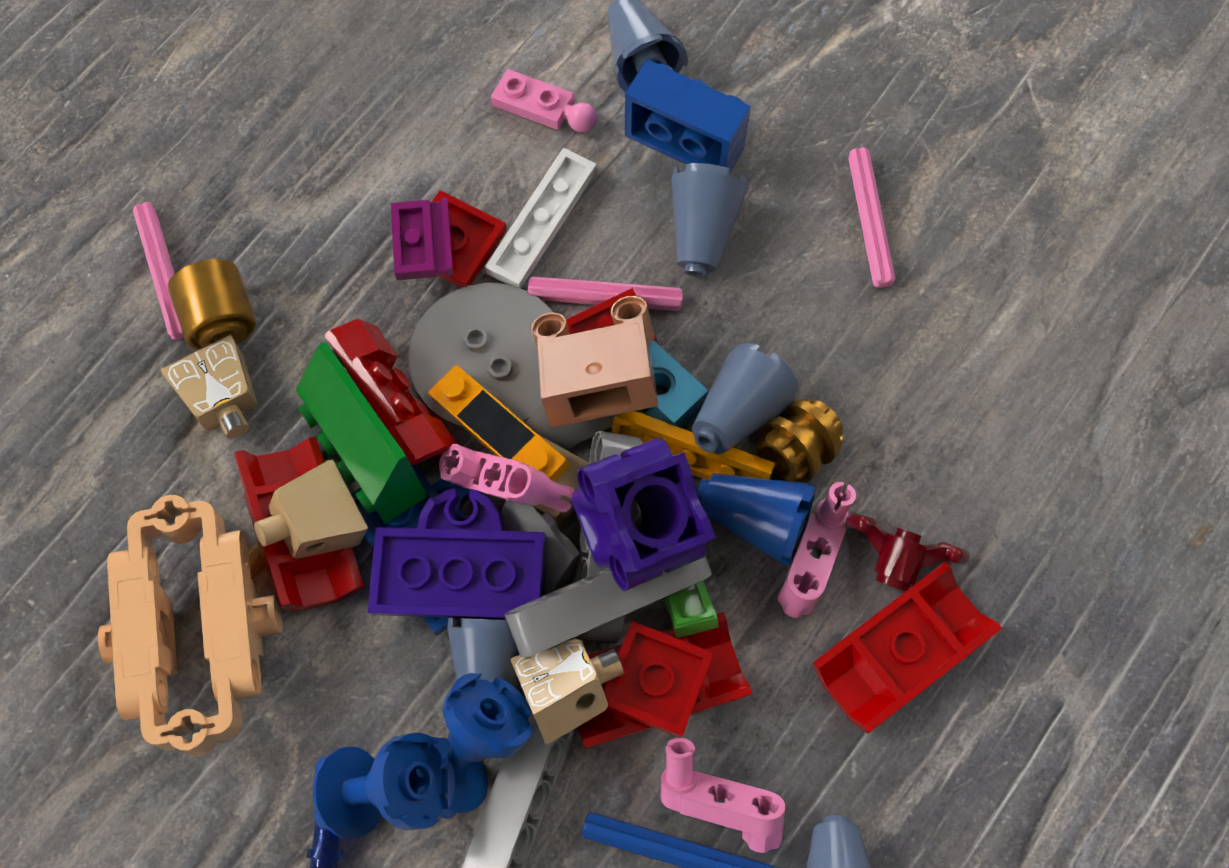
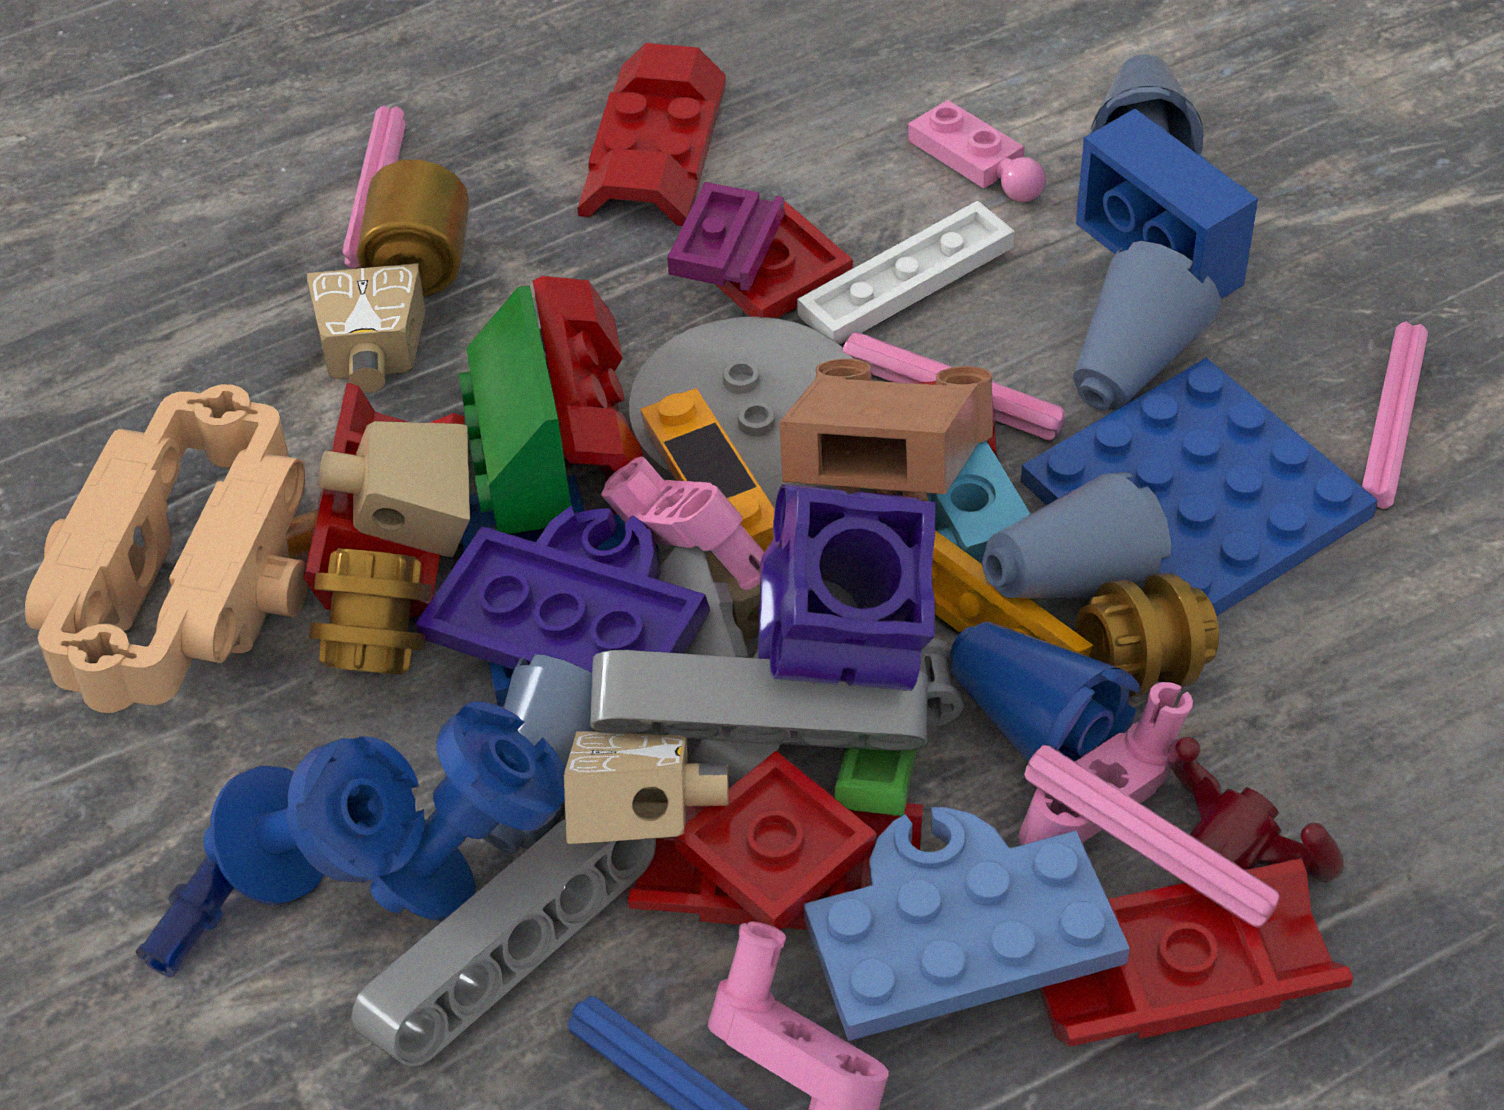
camera: 25 degrees right, 20 degrees down
(328, 161) = (655, 131): none -> red piece
(333, 614) = (370, 611): none -> pearl gold piece
(780, 686) = (960, 924): none -> medium blue plate
(787, 303) = (1230, 475): none -> blue plate
(863, 587) = (1152, 836): none -> bright pink axle

